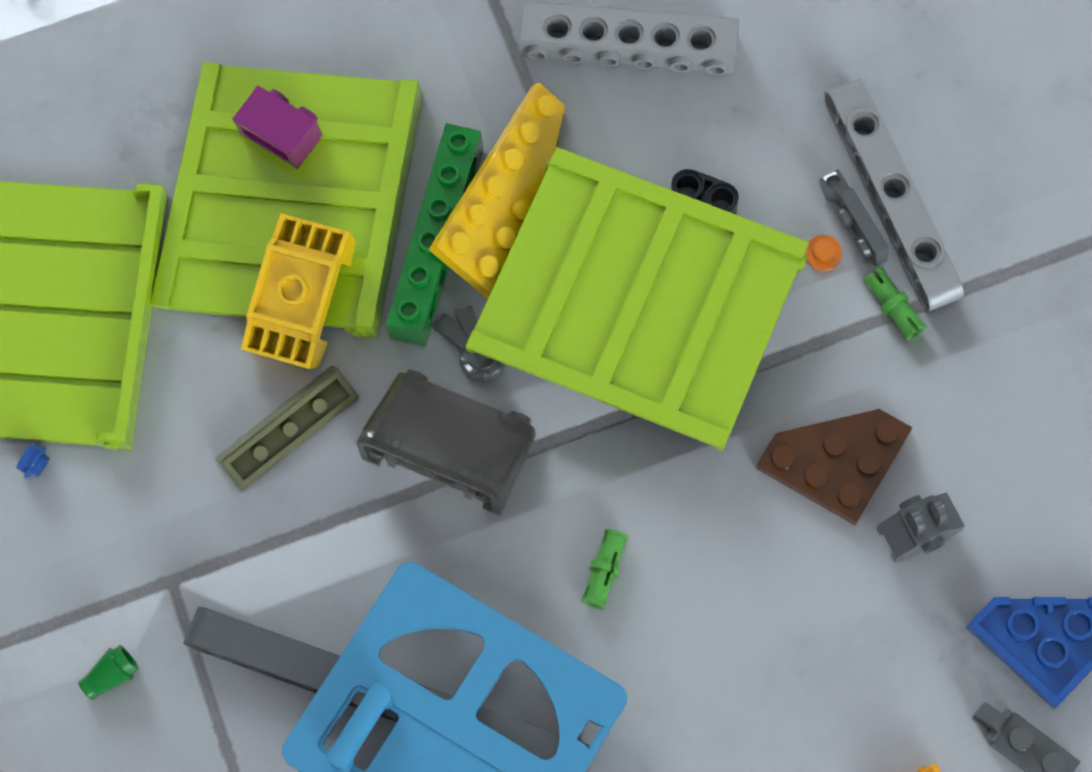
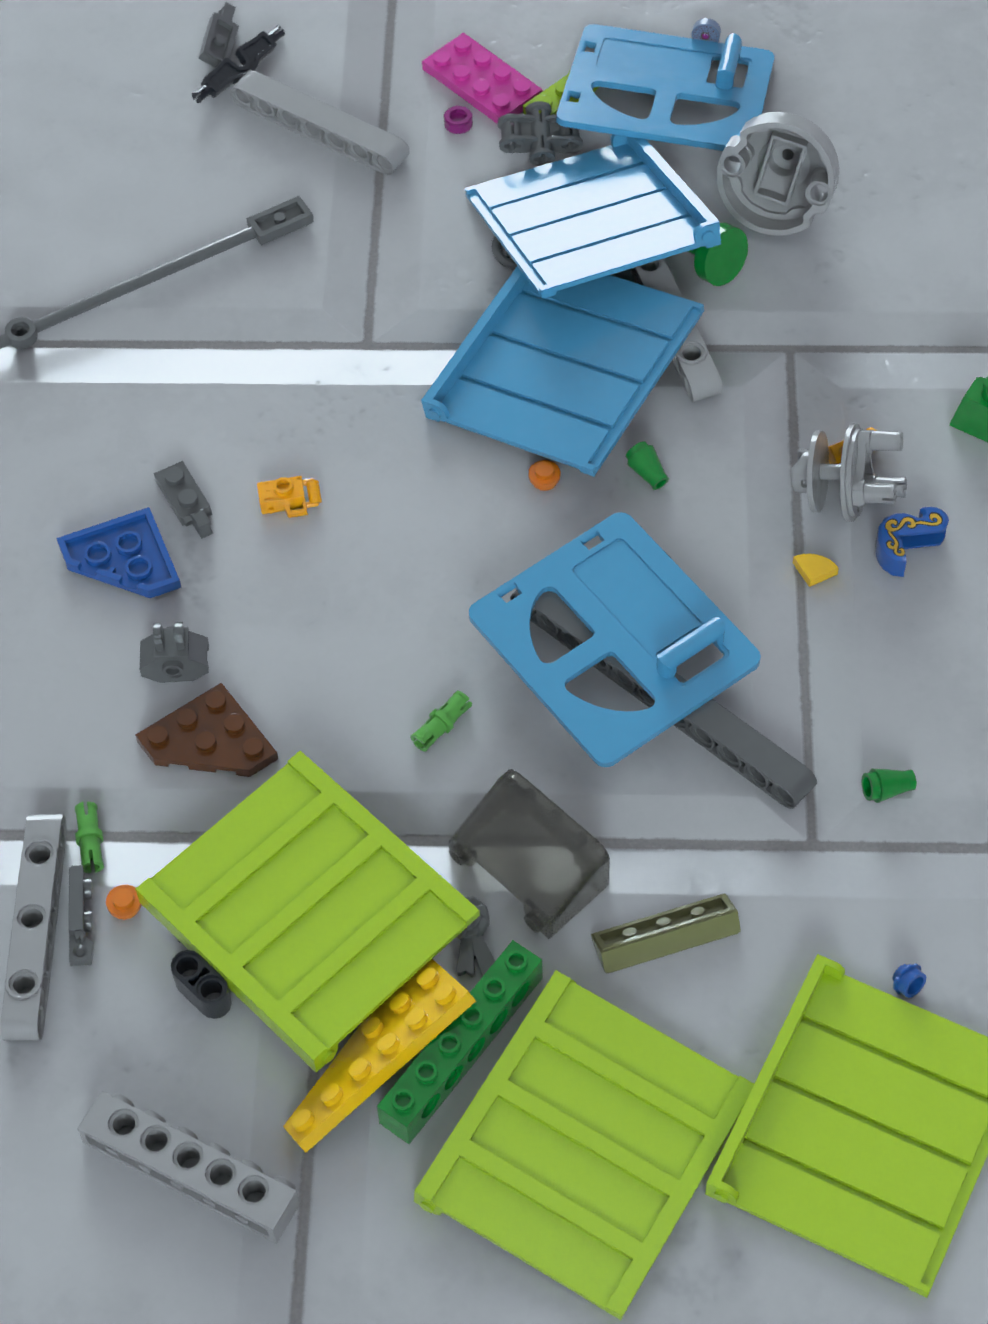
camera: 160 degrees left, 15 degrees down
(278, 126) = (571, 1194): magenta piece -> none
(296, 291) = (609, 1023): yellow plate -> none

